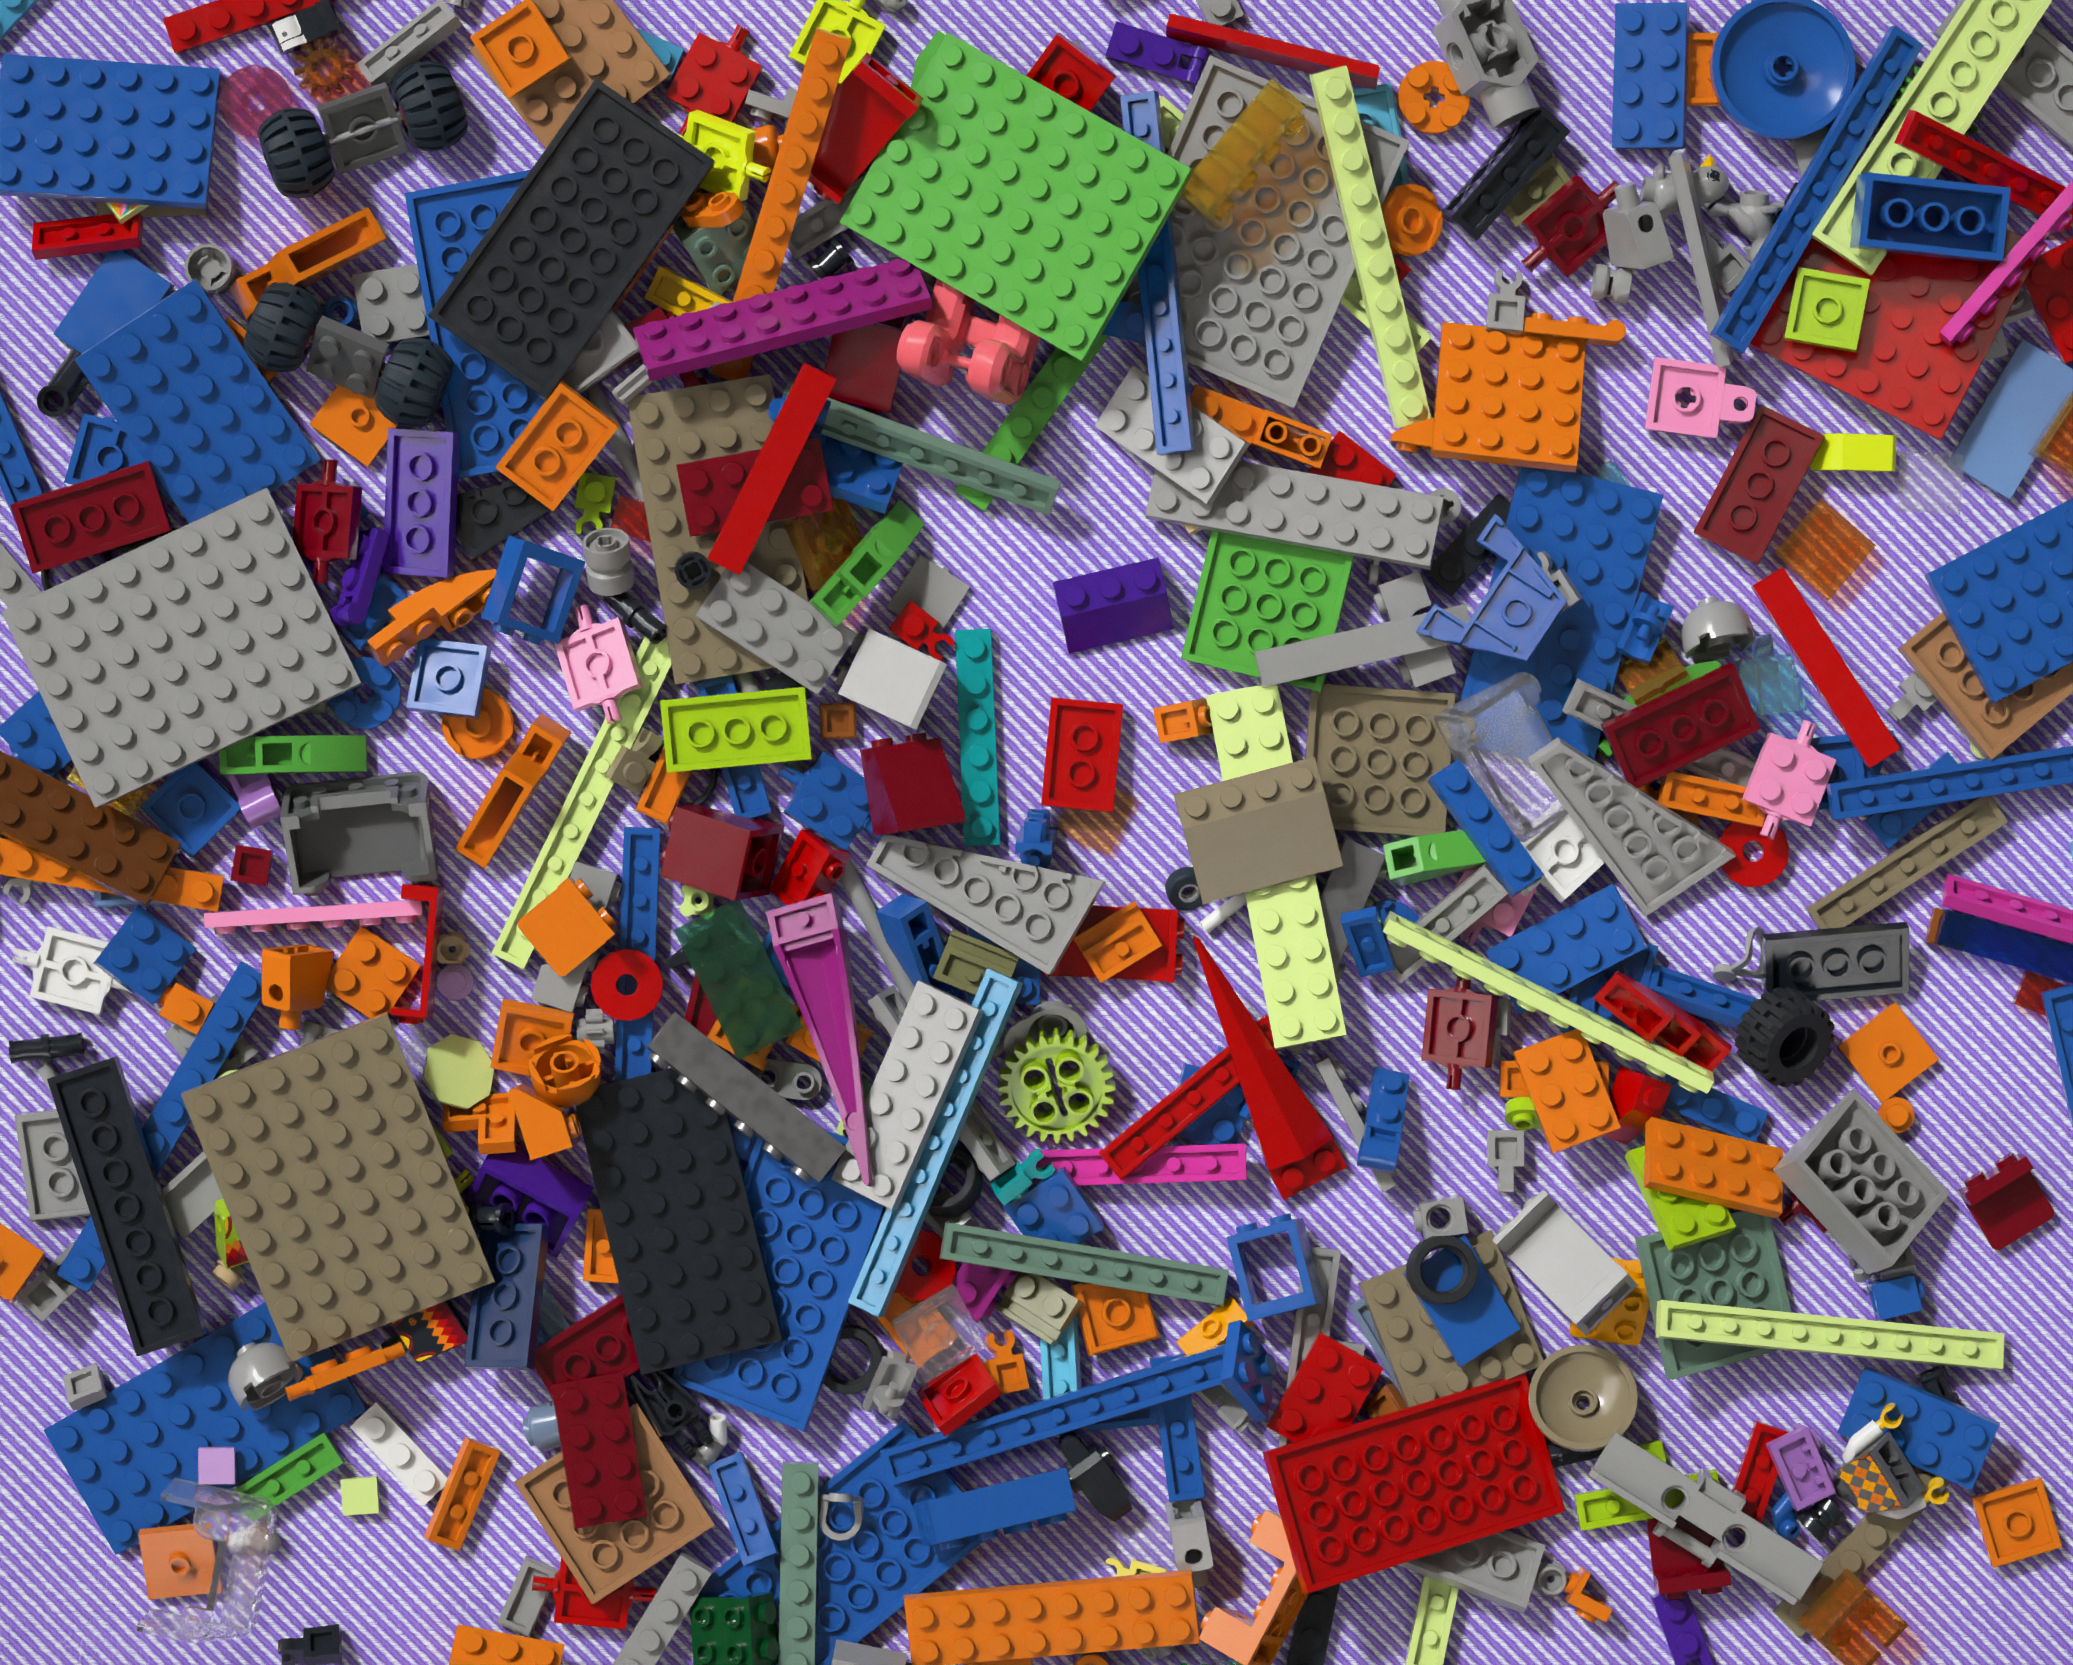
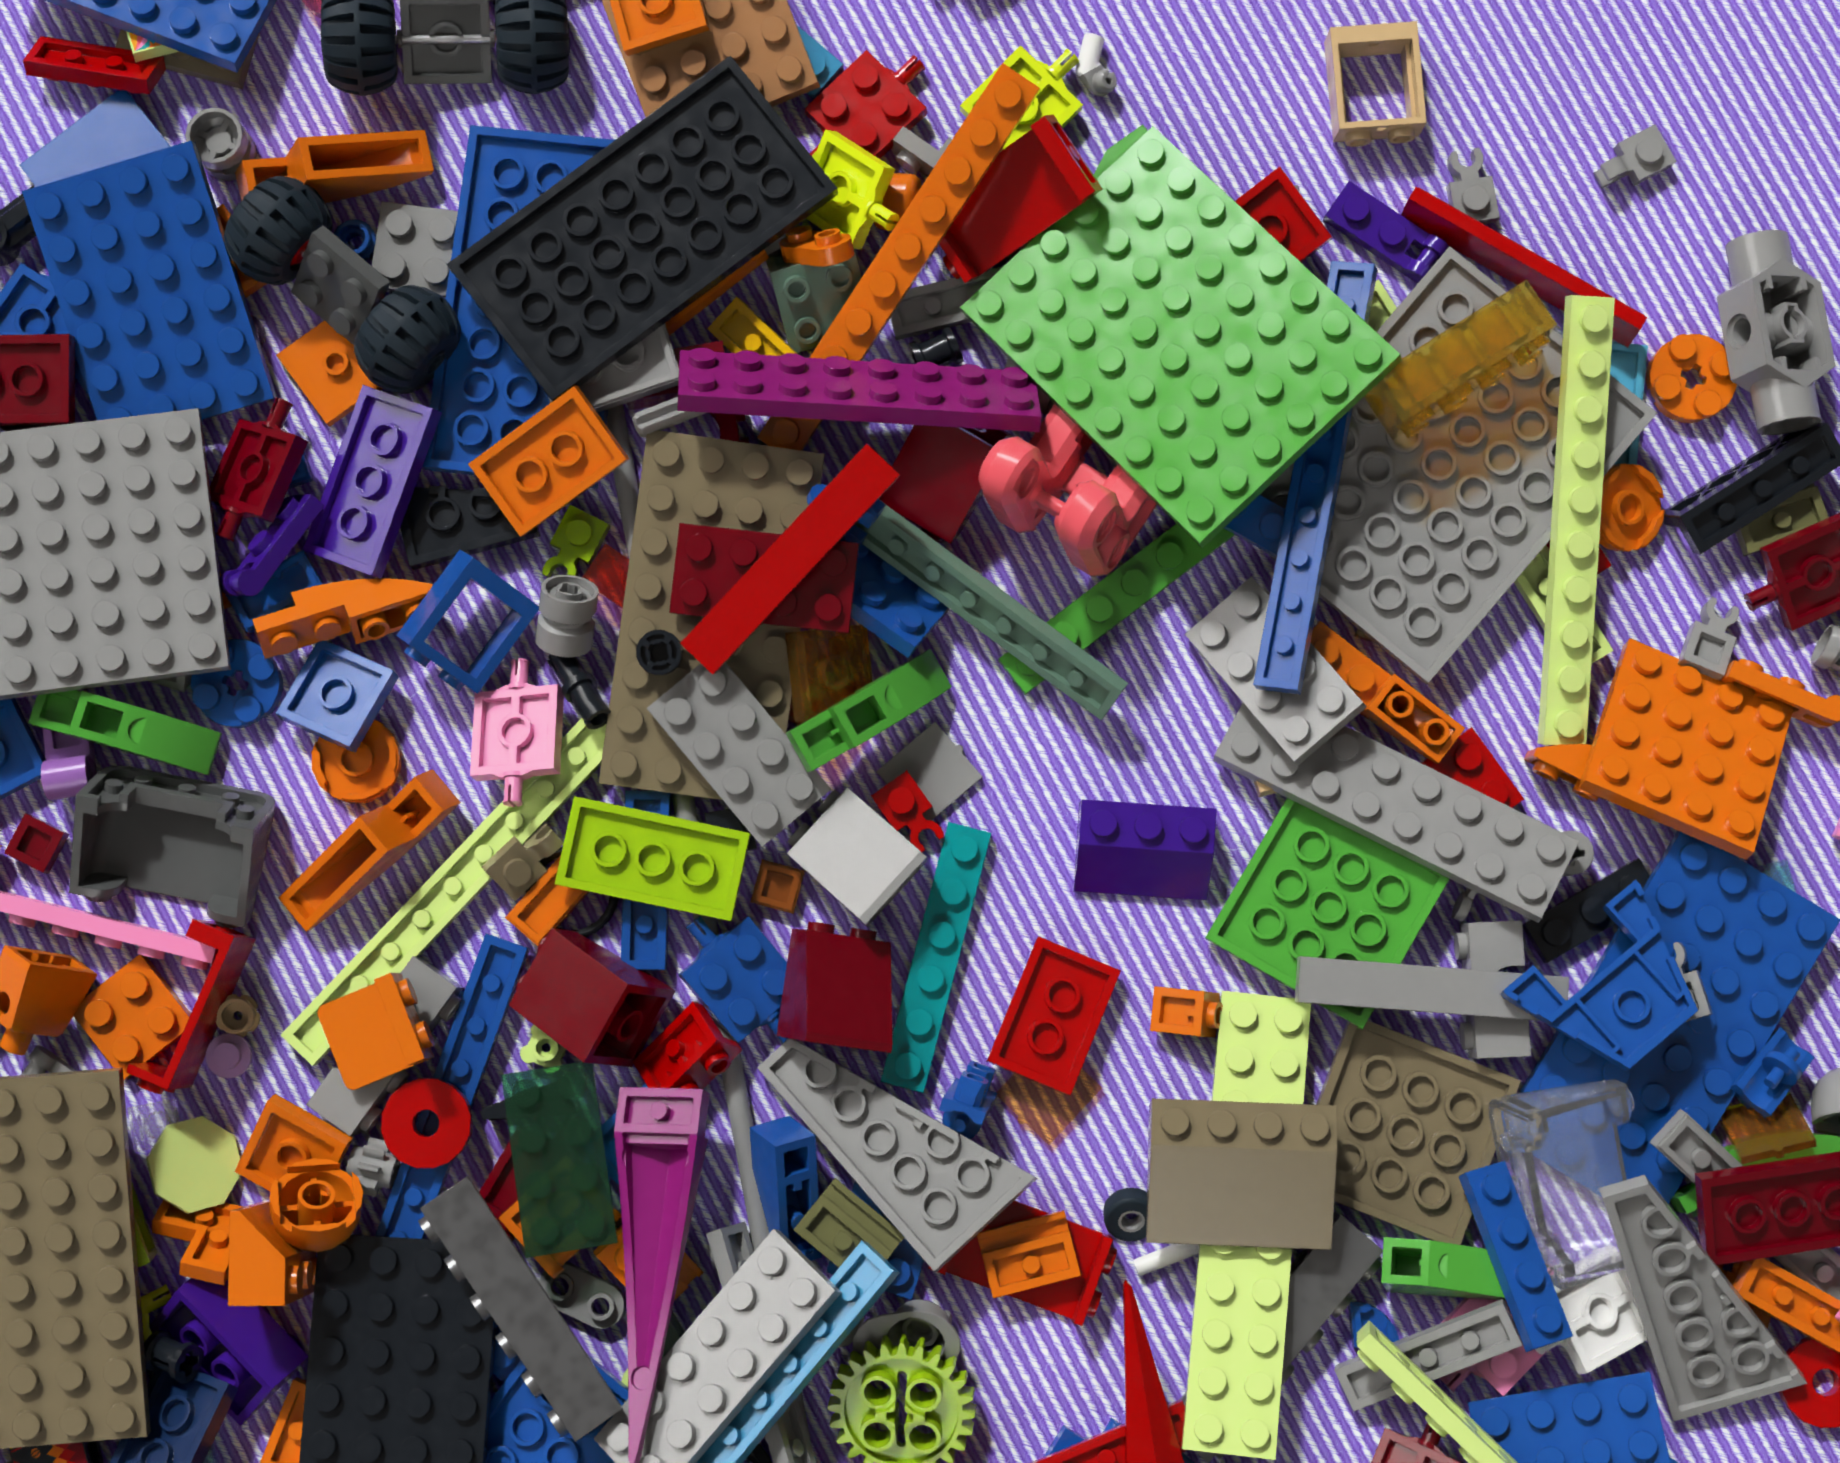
camera: 25 degrees right, 5 degrees down
(1367, 941) = (1332, 1350): blue plate -> none

